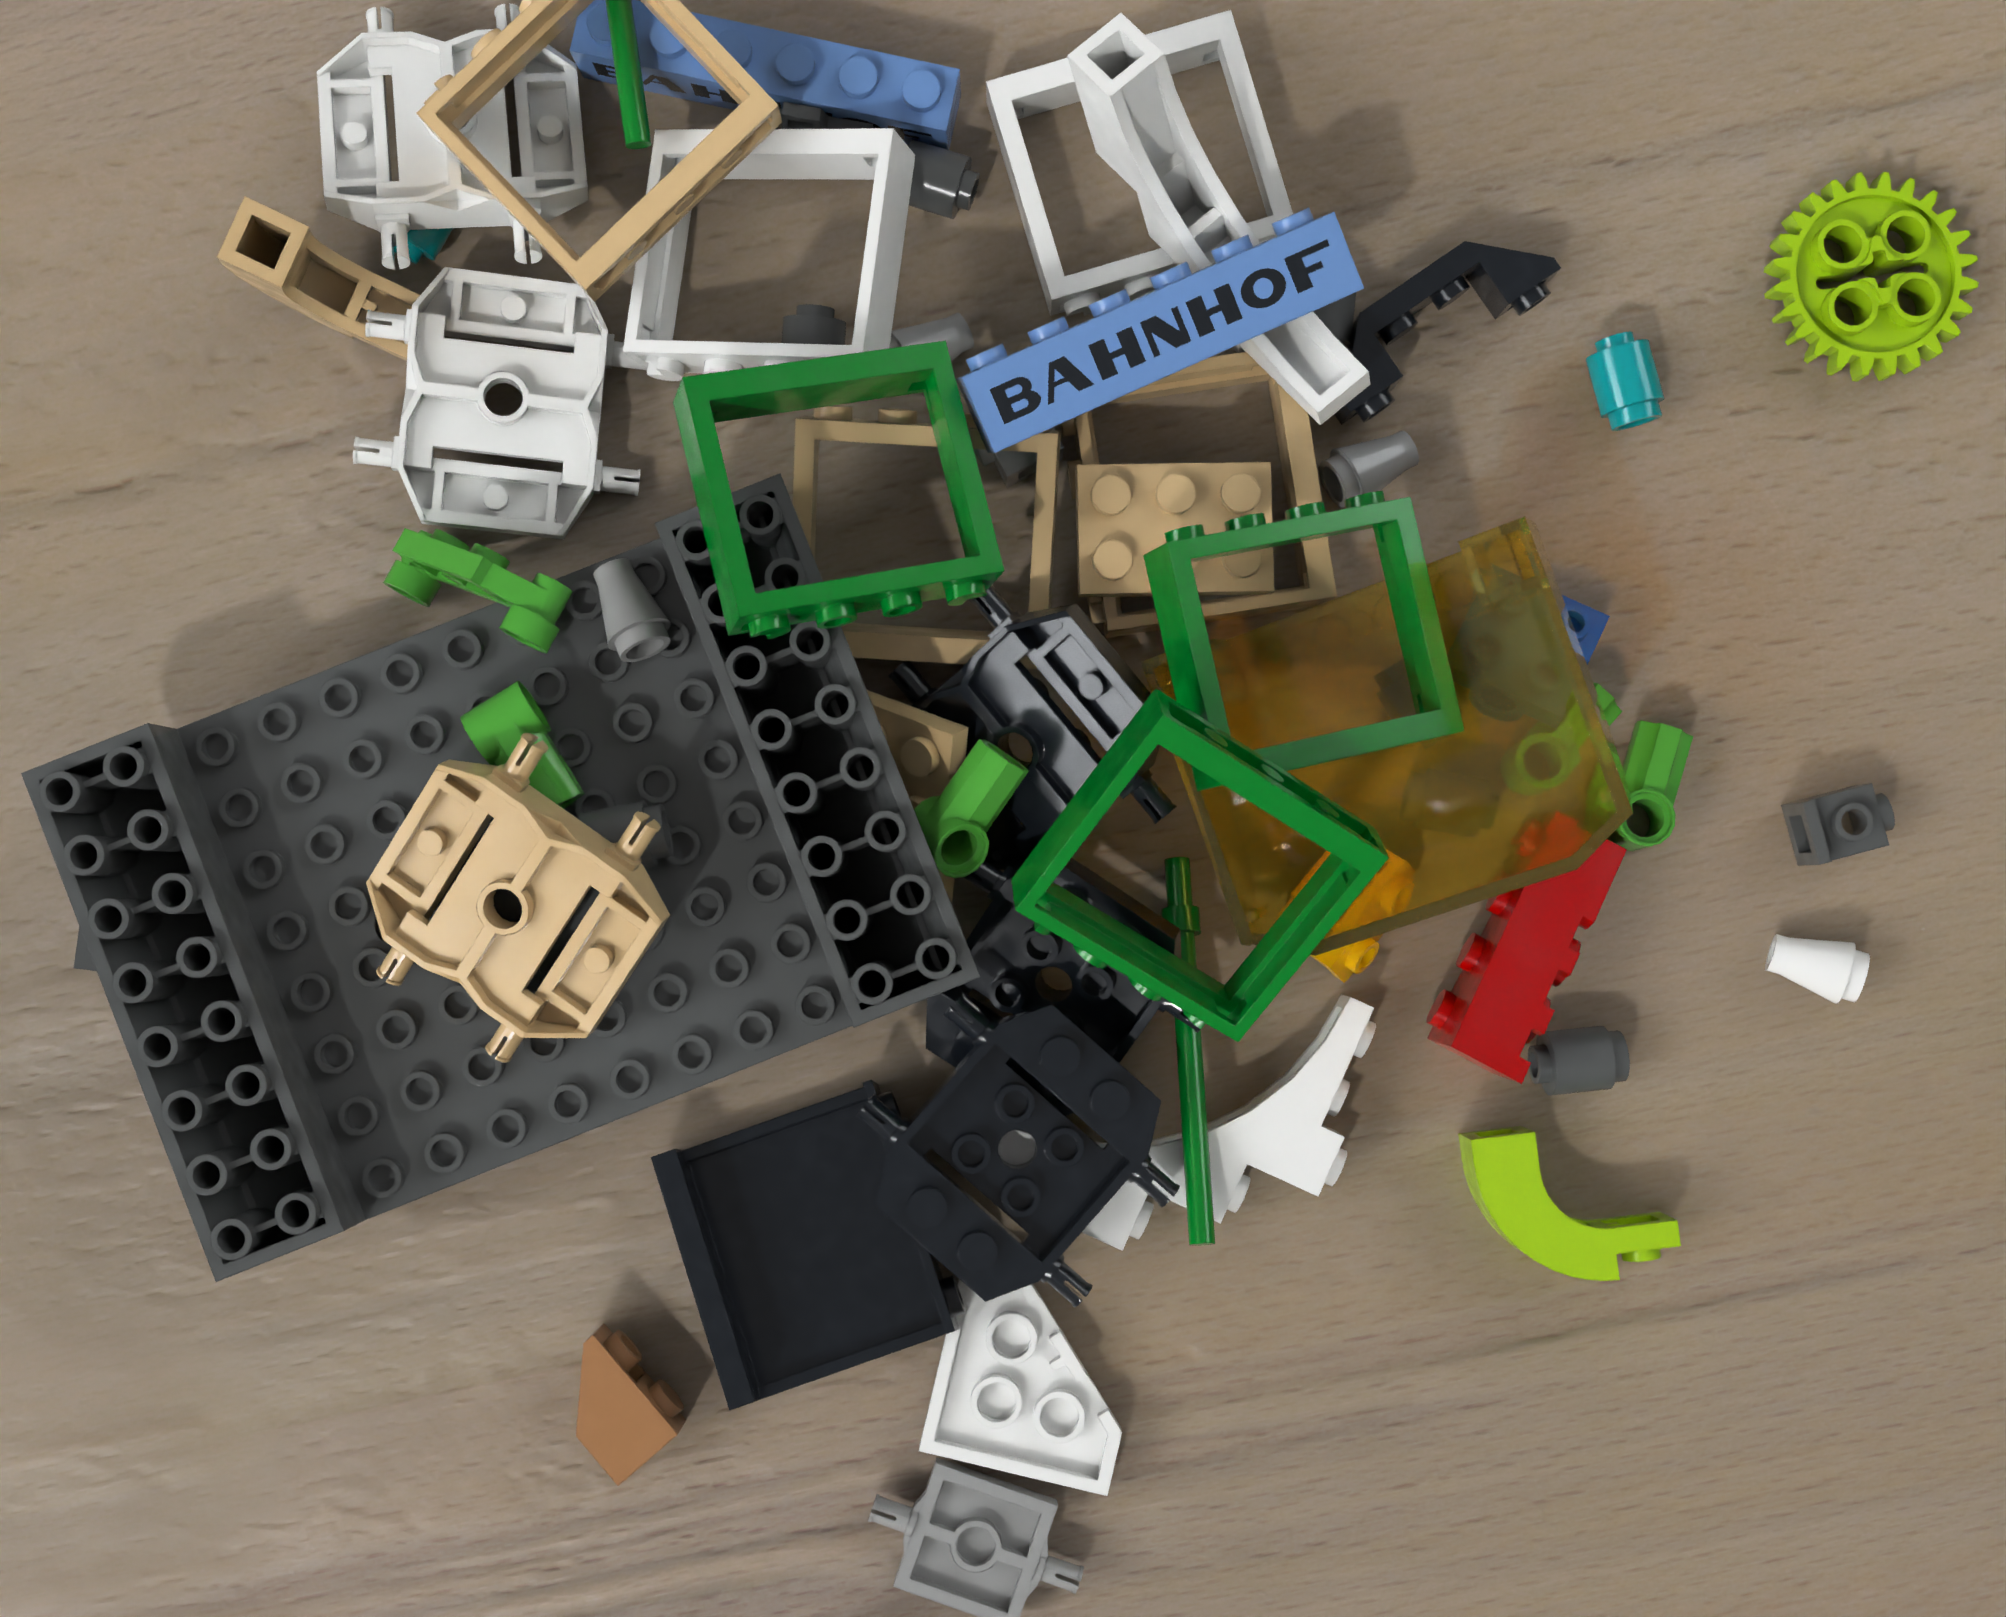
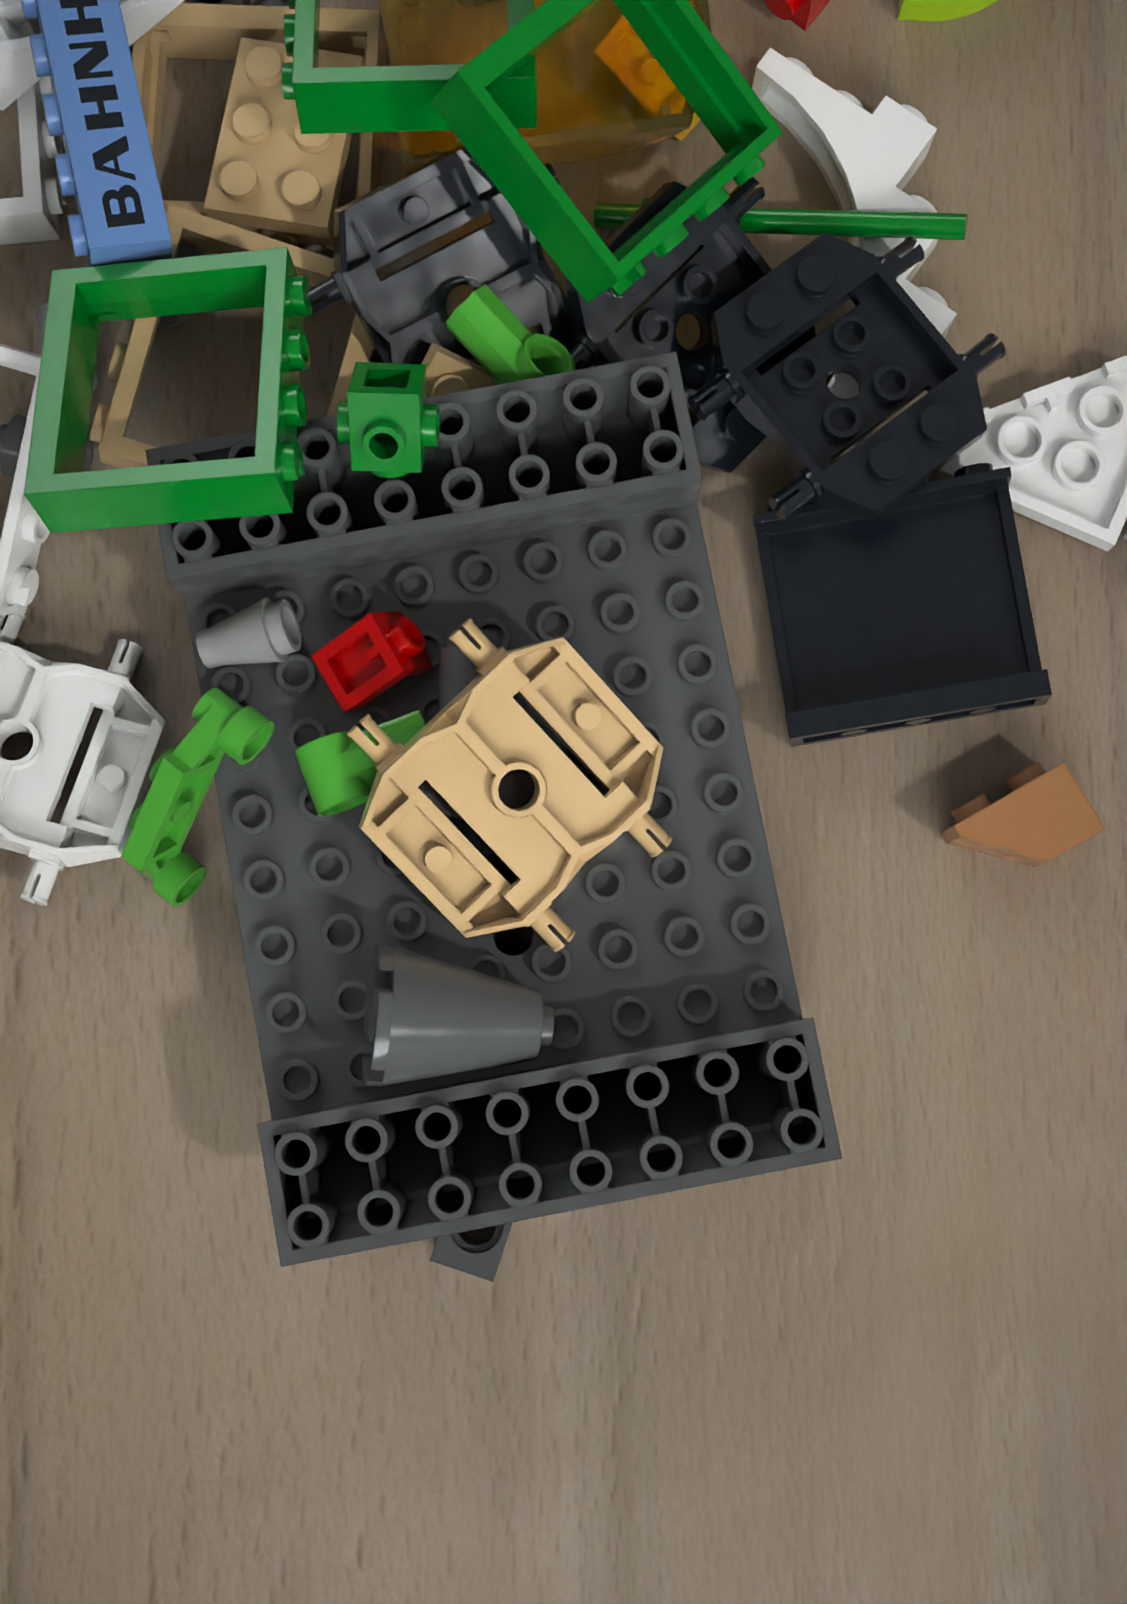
camera: 75 degrees left, 5 degrees down
(282, 879) = (445, 1019): none -> dark grey cone
(626, 737) = (372, 658): none -> red bracket
(831, 711) = (388, 419): none -> green brick

